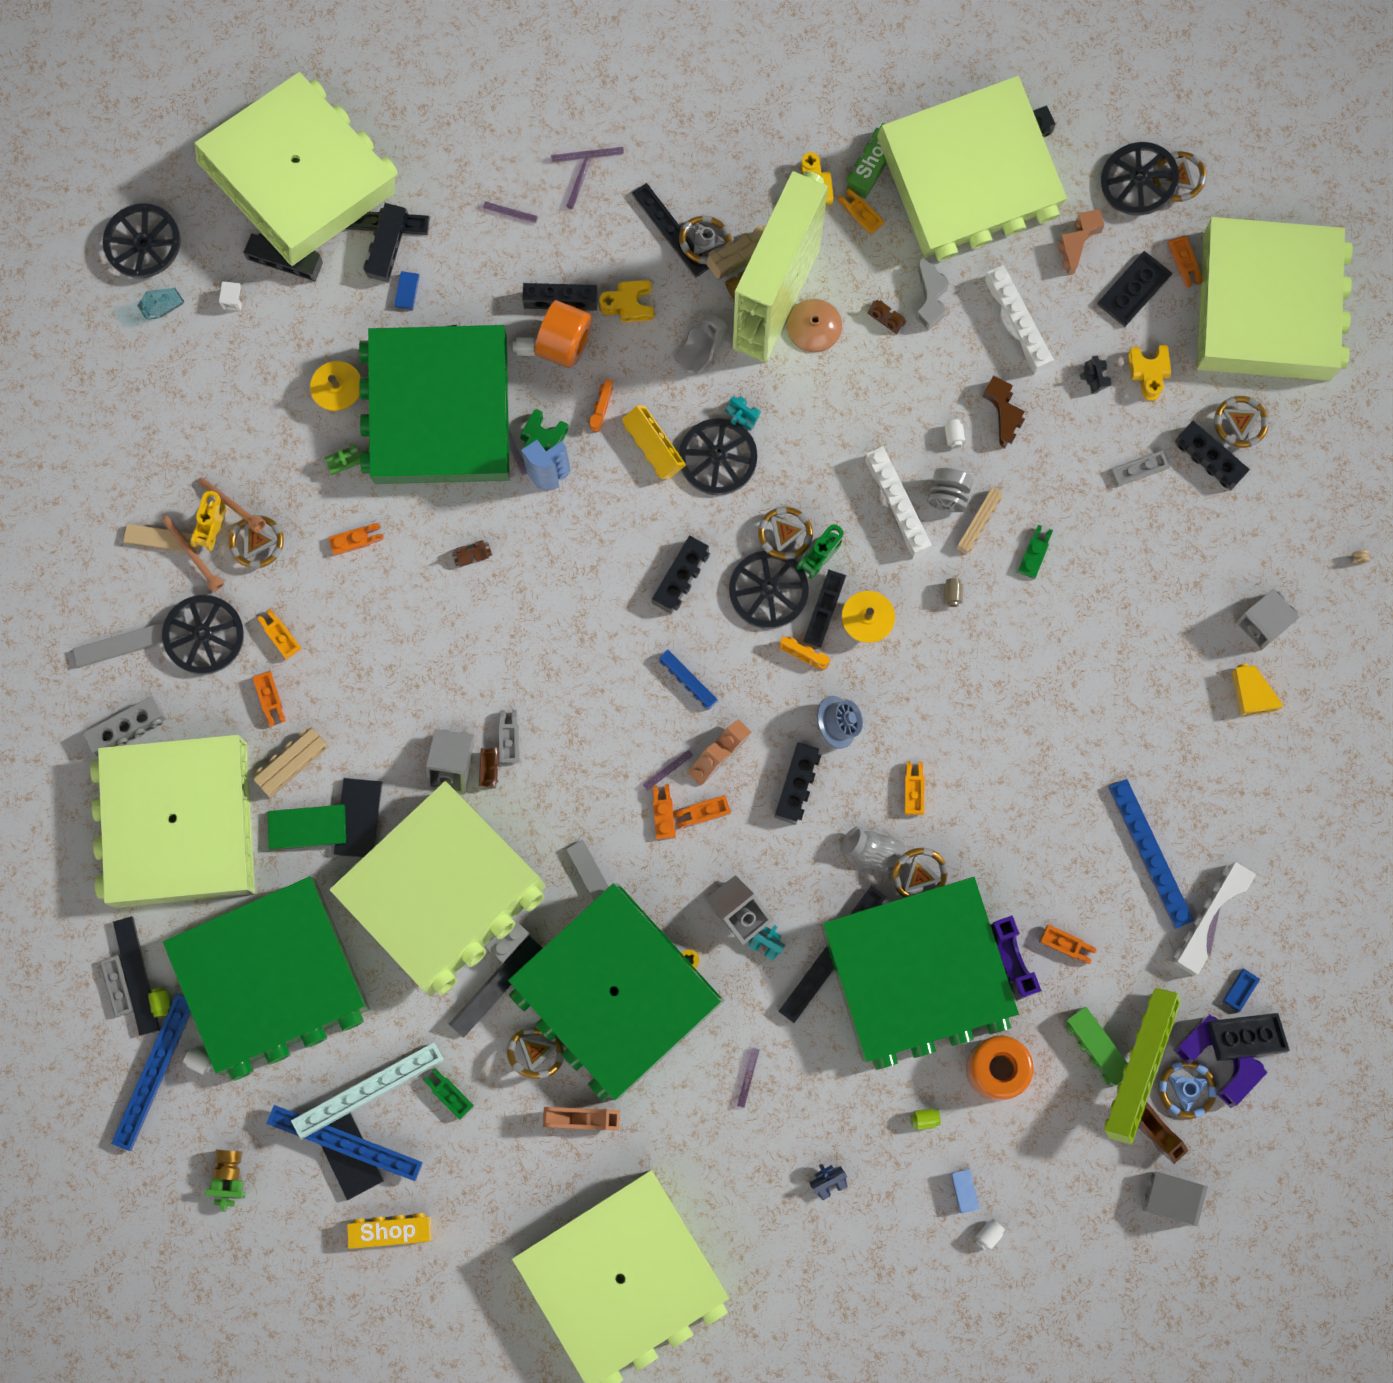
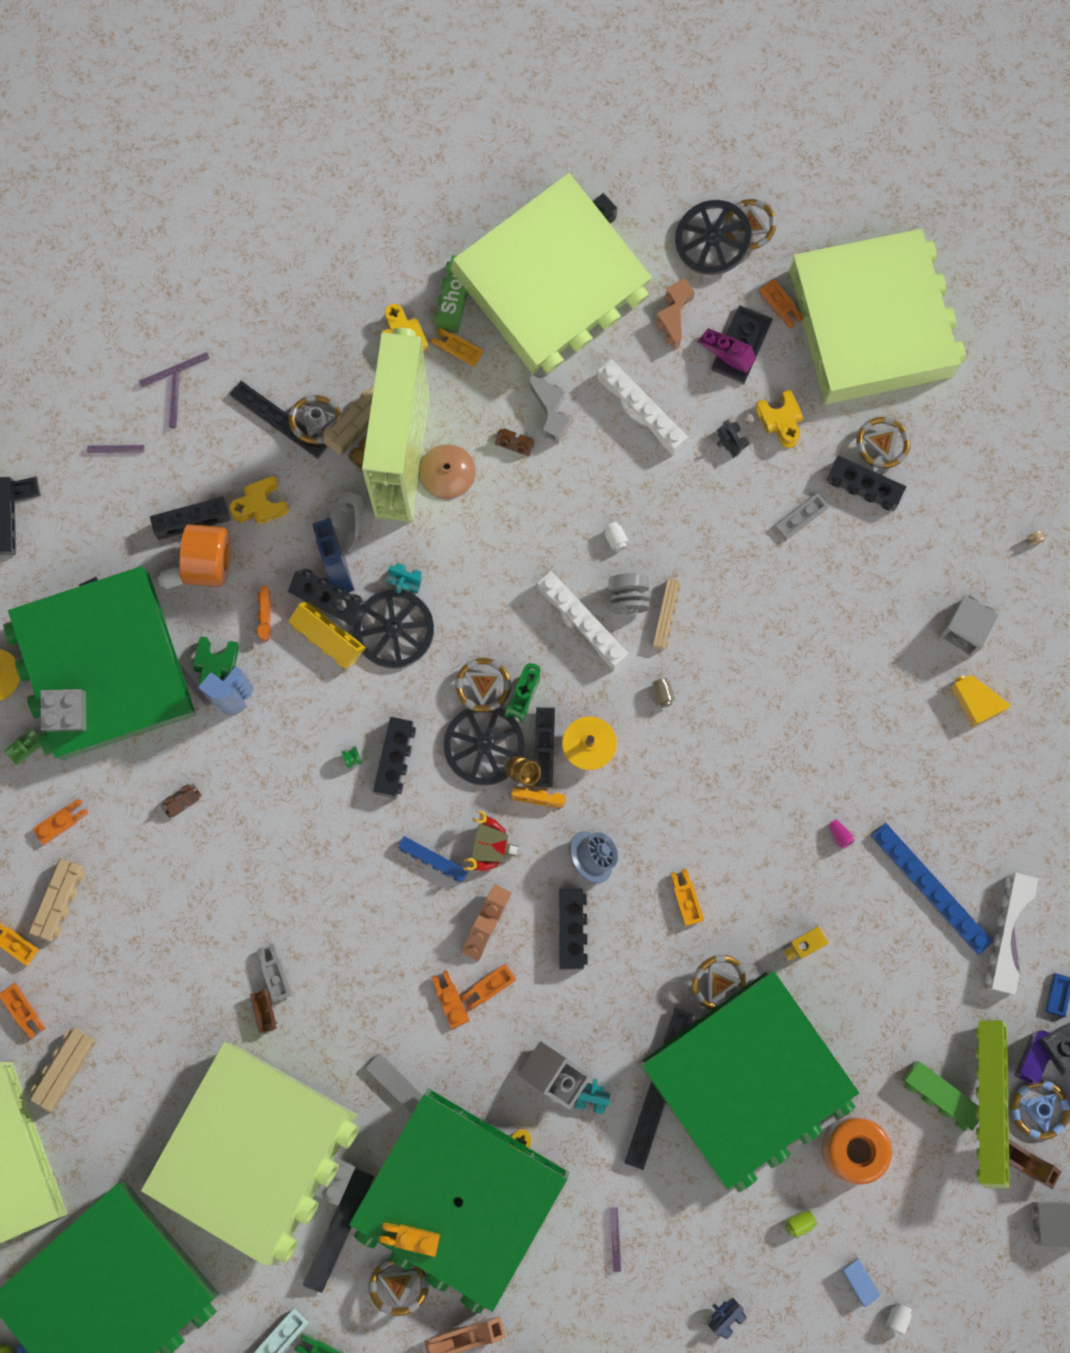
camera: 20 degrees left, 0 degrees up
(306, 827) = (99, 1130): green tile -> none
(331, 608) = (57, 900): none -> tan brick
(361, 813) = (148, 1103): black tile -> none
(391, 435) = (63, 710): none -> light grey brick
(407, 290) = (36, 557): blue tile -> none
(449, 760) = (222, 1016): light grey slope -> none
(561, 1011) = (411, 1239): none -> light orange hinge
(641, 562) = (351, 757): none -> green wheel
(643, 392) = (301, 588): none -> black brick
(667, 770) = (441, 956): clear purple bar -> none
(682, 372) = (332, 555): none -> dark blue slope
(744, 682) = (489, 845): none -> torso
(797, 623) = (523, 770): none -> pearl gold wheel
(872, 849) = (665, 971): light grey hair -> none
(1009, 416) = (662, 503): reddish brown arch -> none
(1020, 979) = (851, 1058): dark purple arch -> none
(1023, 865) = (814, 938): none -> yellow torso
(1034, 554) = (728, 630): green hinge -> none
(1065, 943) = (879, 1004): orange hinge -> none
(1080, 776) = (841, 834): none -> dark pink cone
(1120, 290) = (732, 351): none -> magenta slope

